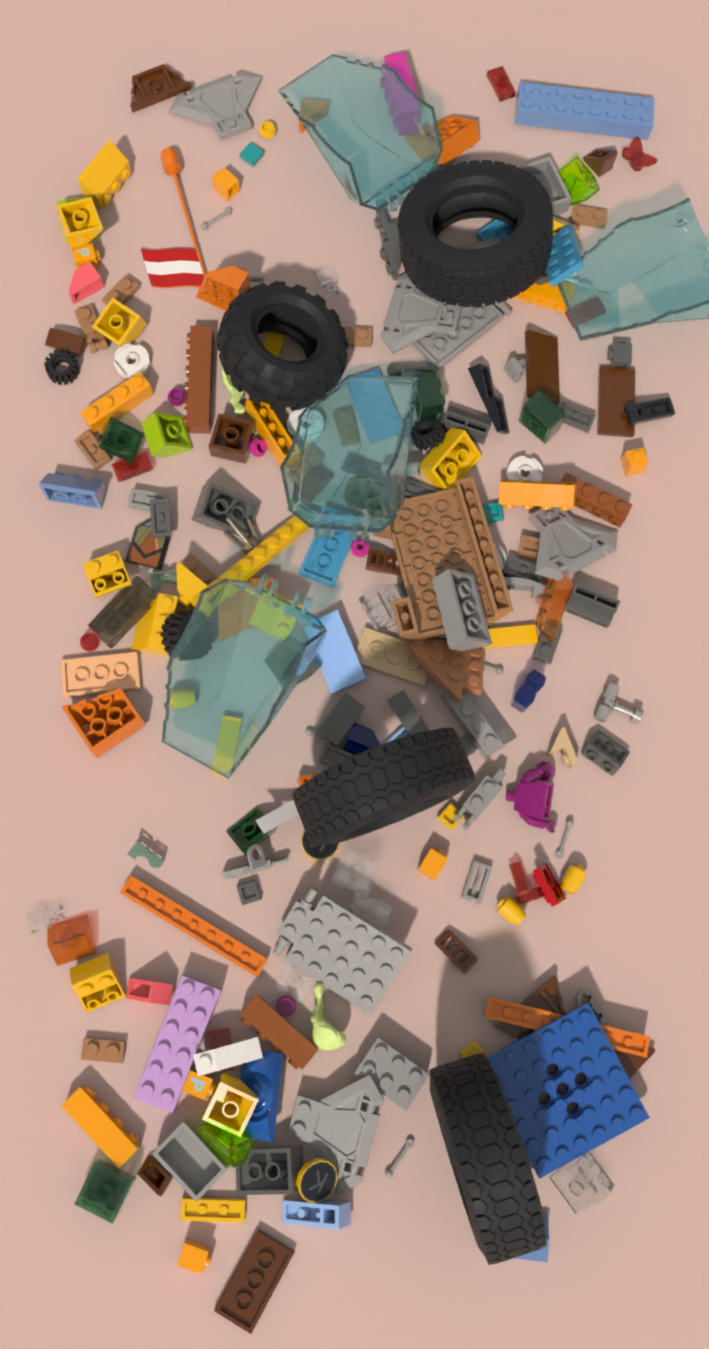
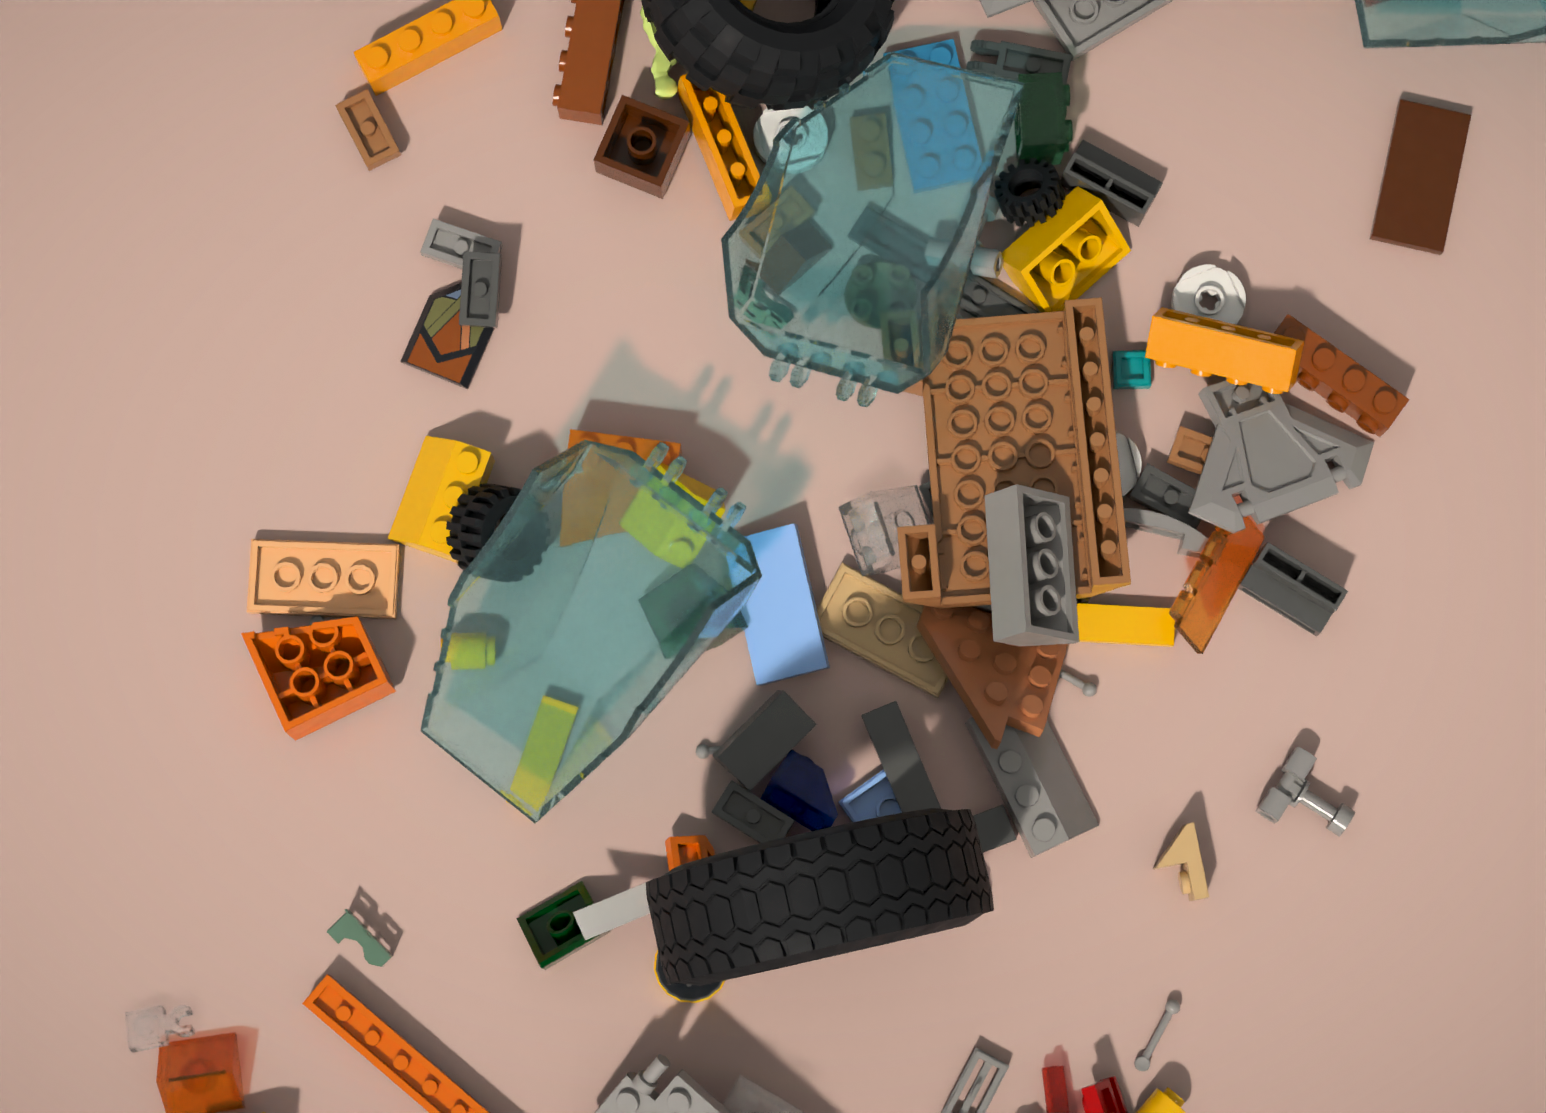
camera: 15 degrees right, 5 degrees up
(73, 490) = (321, 205): medium blue slope -> none
(89, 642) = (311, 512): clear red plate -> none
(107, 574) = (362, 386): yellow slope -> none
(120, 440) = (423, 120): clear green slope -> none
(123, 612) = (382, 466): clear smoke tile -> none
(125, 470) = (440, 174): clear red plate -> none
(156, 582) = (458, 410): sand green piece -> none
(166, 434) = (515, 119): lime slope -> none
(176, 397) = (546, 42): magenta plate -> none
(188, 586) = (516, 441): yellow slope -> none
(199, 569) = (537, 406): medium nougat plate -> none
(219, 503) = (608, 290): dark grey slope -> none
(249, 892) = (542, 1041): dark grey tile -> none
(250, 543) = (645, 368): dark tan plant -> none
(254, 865) = (556, 994): light grey piece -> none
(258, 447) = (698, 170): dark pink plate -> none
(263, 553) = (655, 397): yellow plate -> none
(326, 557) = (787, 419): dark azure plate -> none
(356, 870) = (749, 1034): clear brick -> none
(360, 553) = (855, 414): dark pink plate -> none
(377, 567) = (871, 443): reddish brown slope -> none
(433, 863) = (897, 1043): light orange brick -> none
(447, 816) = (946, 958): yellow tile -> none
(481, 797) = (1009, 932): light grey hinge -> none
(494, 405) = (1171, 152): black slope -> none
(515, 369) = (1228, 81): light grey tile -> none
(529, 689) = (1132, 745): clear blue brick -> none
(534, 798) = (1112, 952): magenta torso -> none
(542, 365) = (1282, 86): reddish brown tile -> none
(542, 416) = (1262, 191): clear green brick -> none
(545, 649) = (1184, 664): dark grey plate -> none
(577, 417) = (1331, 198): dark grey plate -> none
(605, 752) = (1266, 882): dark grey bracket -> none
(620, 355) = (1445, 82): dark grey brick -> none
(634, 461) = (1432, 309): light orange brick -> none
(649, 411) = (1483, 208): black plate -> none

